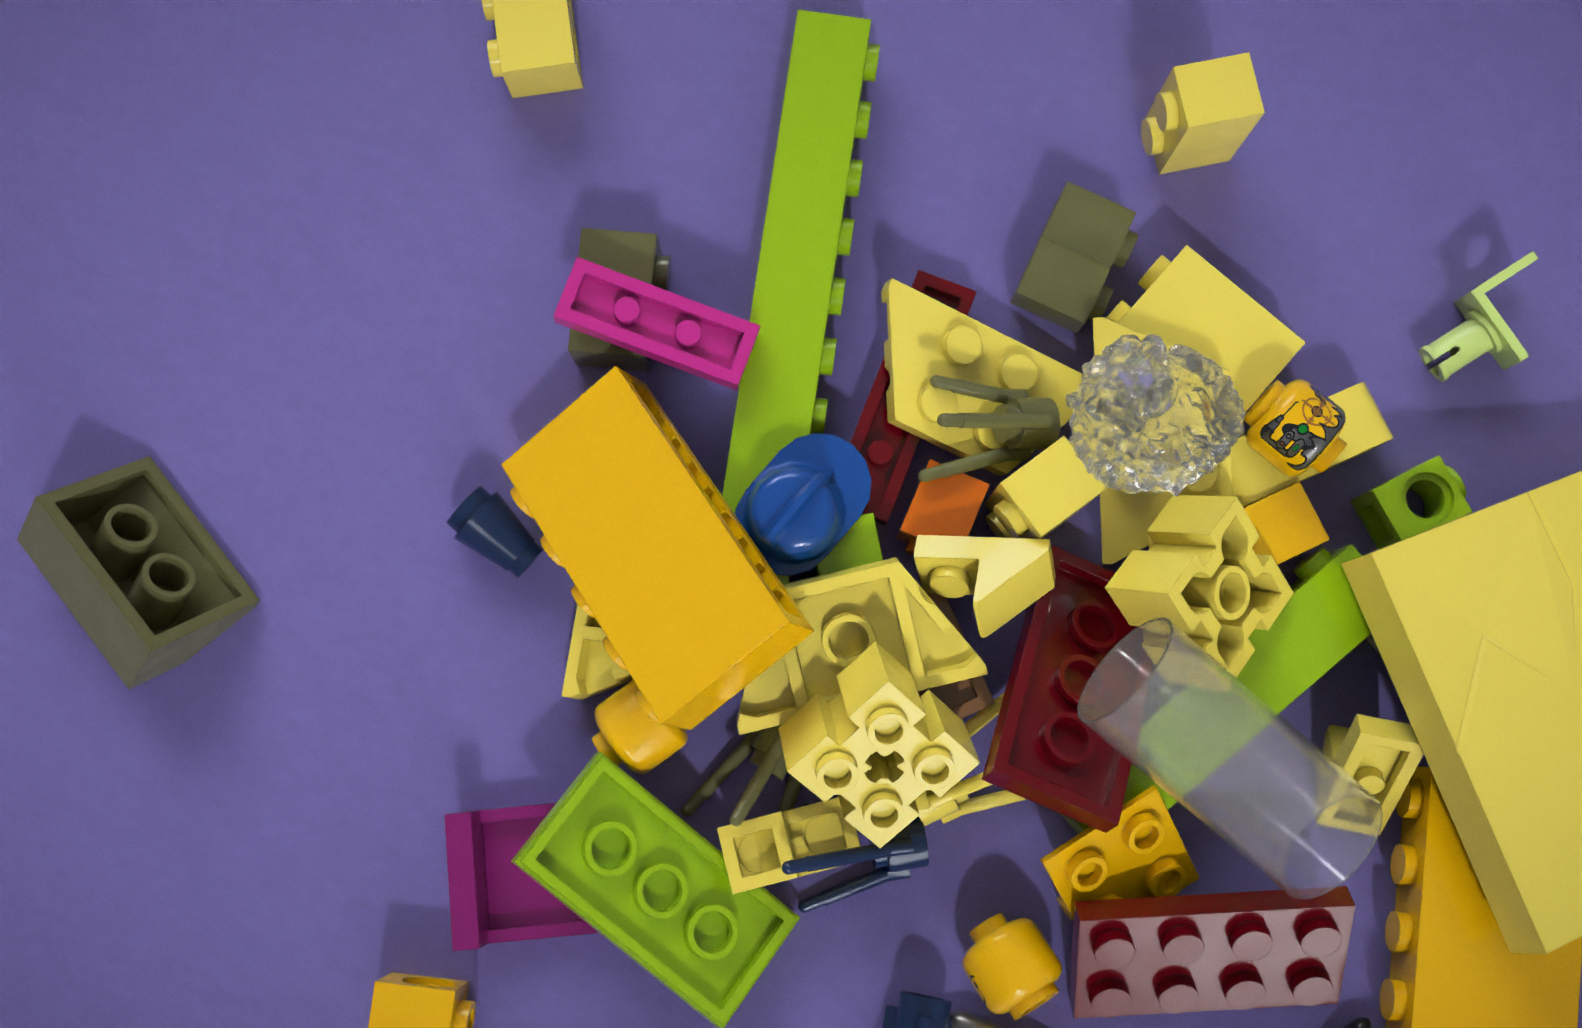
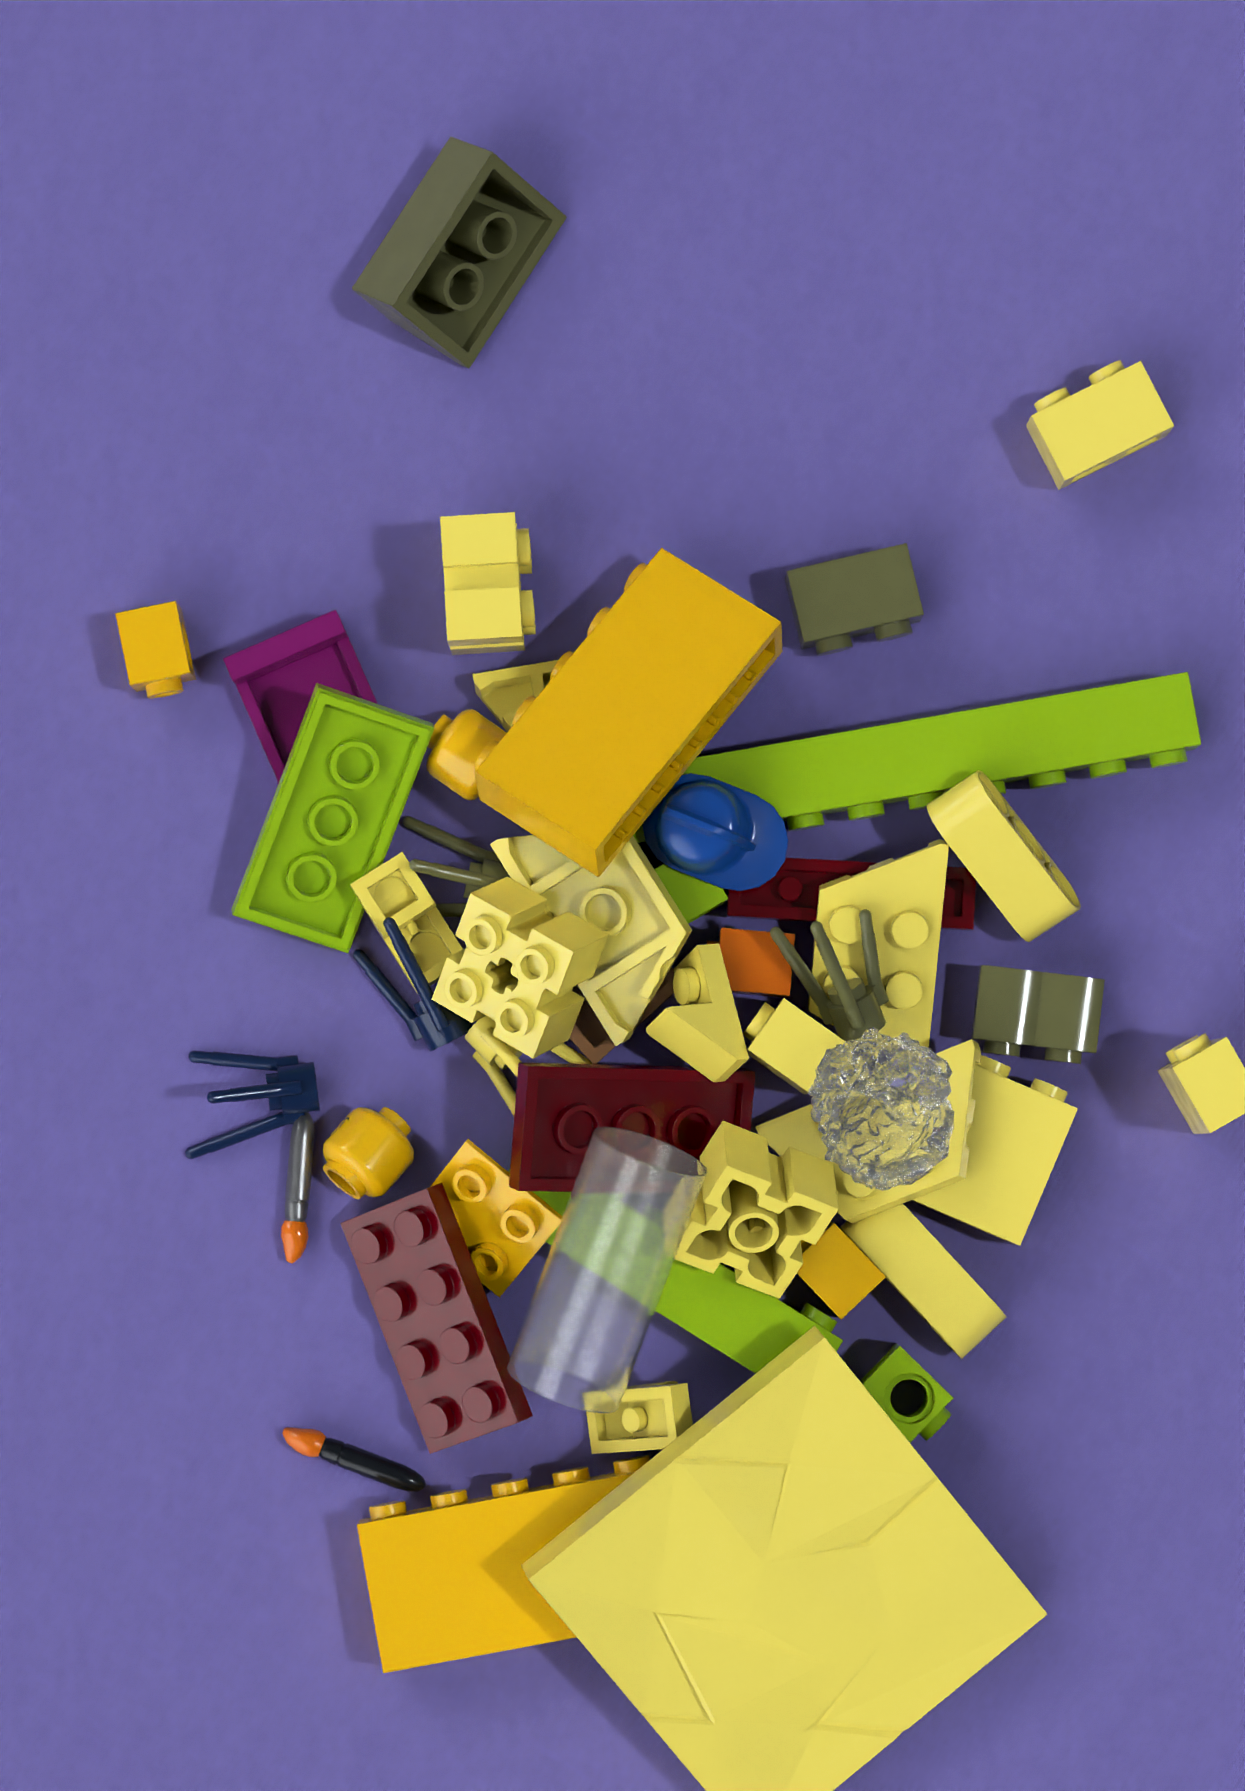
camera: 70 degrees right, 5 degrees up
(475, 654) = (484, 583): none -> light yellow brick
(494, 531) = (600, 561): dark blue cone -> none
(656, 323) = (834, 645): dark pink plate -> none
(916, 236) = (1003, 856): none -> light yellow beam
(1296, 428) = (929, 1254): yellow head -> none
(1480, 332) = (1090, 1411): yellowish green bracket -> none

